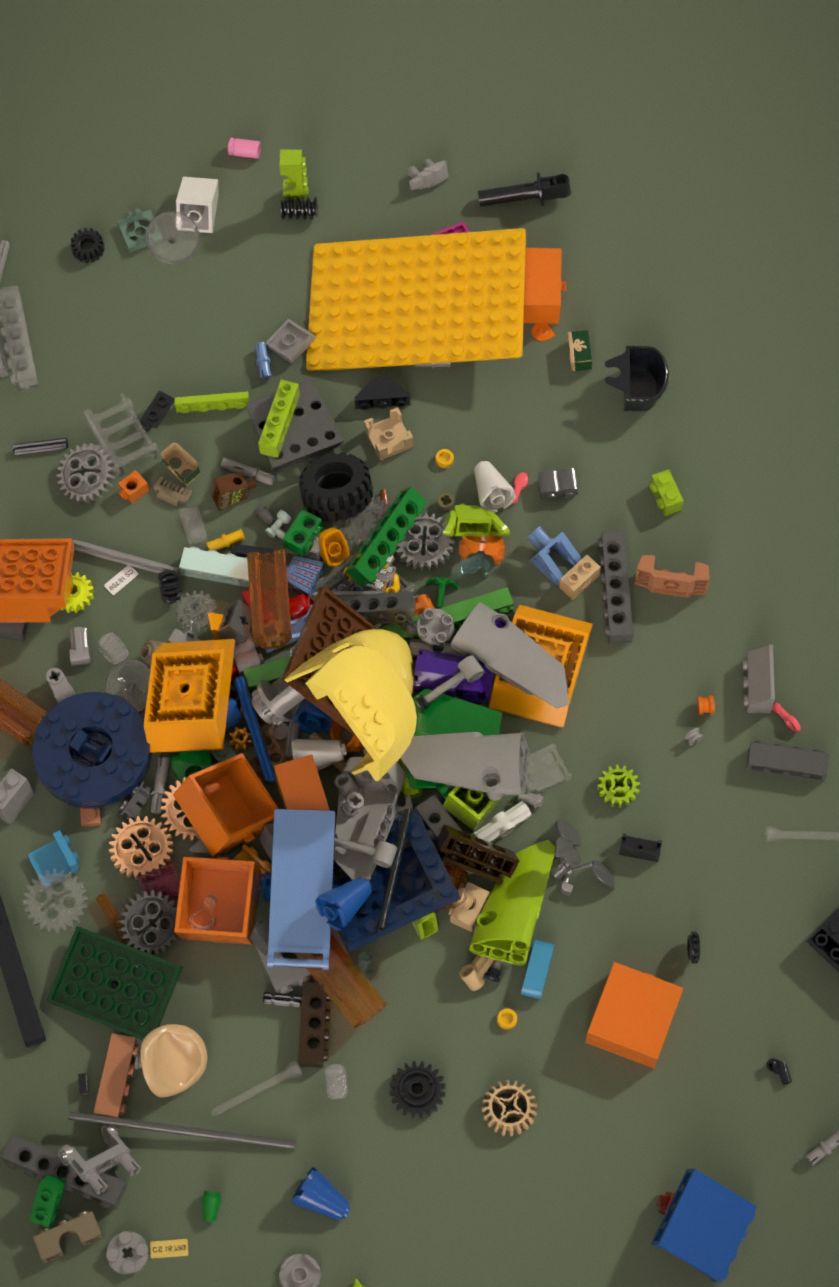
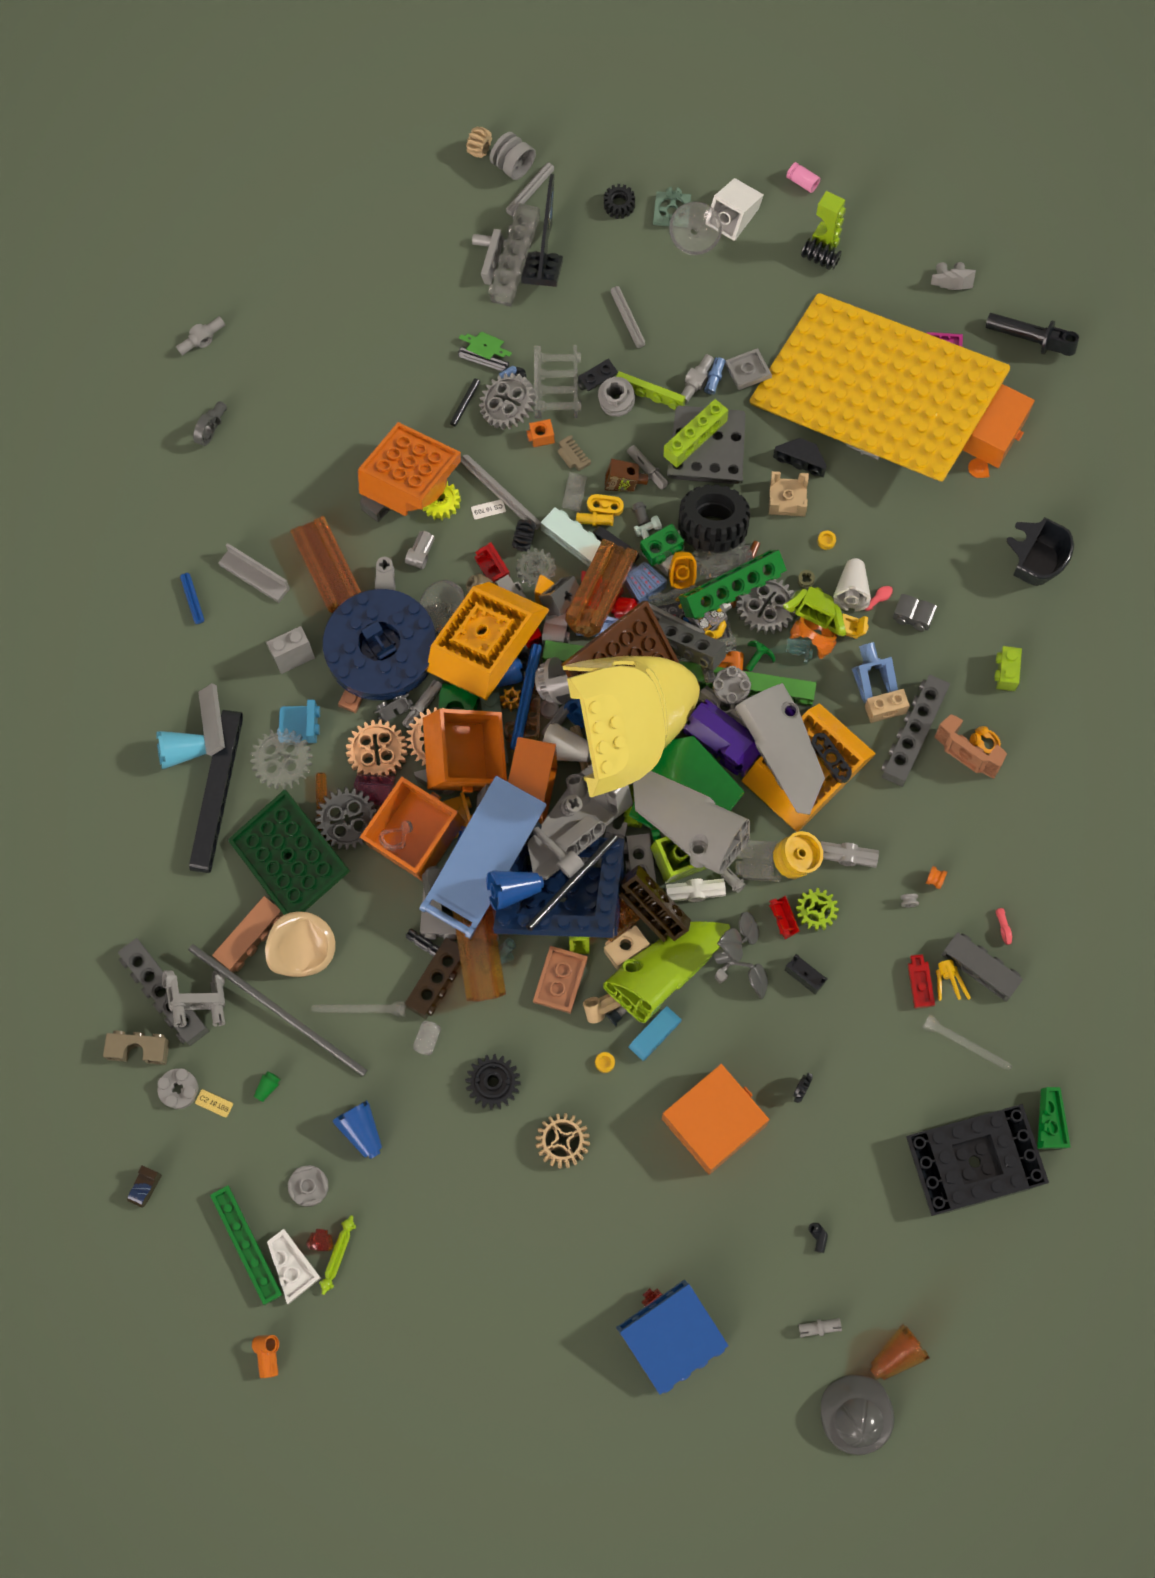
camera: 30 degrees right, 5 degrees up
(27, 433) = (477, 345): none -> bright green piece
(45, 493) = (469, 394): none -> black bar
(48, 1200) = (134, 1009): green brick -> none
(50, 337) = (539, 266): none -> black piece
(72, 444) = (513, 369): none -> arm
(83, 1088) = (219, 926): black piece -> none
(112, 648) = (446, 565): clear gear -> none
(153, 345) = (628, 317): none -> light grey axle
(153, 626) = (491, 563): none -> red hinge
(176, 450) = (593, 417): tan piece -> none
(188, 411) = (619, 406): none -> light grey piece
(228, 521) = (606, 504): none -> yellow plate
(248, 370) = (697, 377): none -> light grey pin
(426, 966) = (560, 979): none -> nougat plate
(466, 899) = (622, 939): tan wheel -> none
(469, 669) = (737, 739): light grey piece -> none
(514, 521) = (855, 627): none -> yellow bracket
(560, 653) = (843, 766): none -> black beam
(576, 746) = (798, 855): none -> yellow wheel
(579, 350) = (1002, 501): dark green piece -> none
(594, 807) = (784, 916): none -> red hinge
(618, 724) = (850, 854): none -> light grey piece
(678, 558) = (975, 738): none -> light orange piece
(743, 802) = (920, 982): none -> red hinge
(759, 680) = (996, 880): light grey slope -> none
(761, 780) = (949, 971): none -> yellow plant

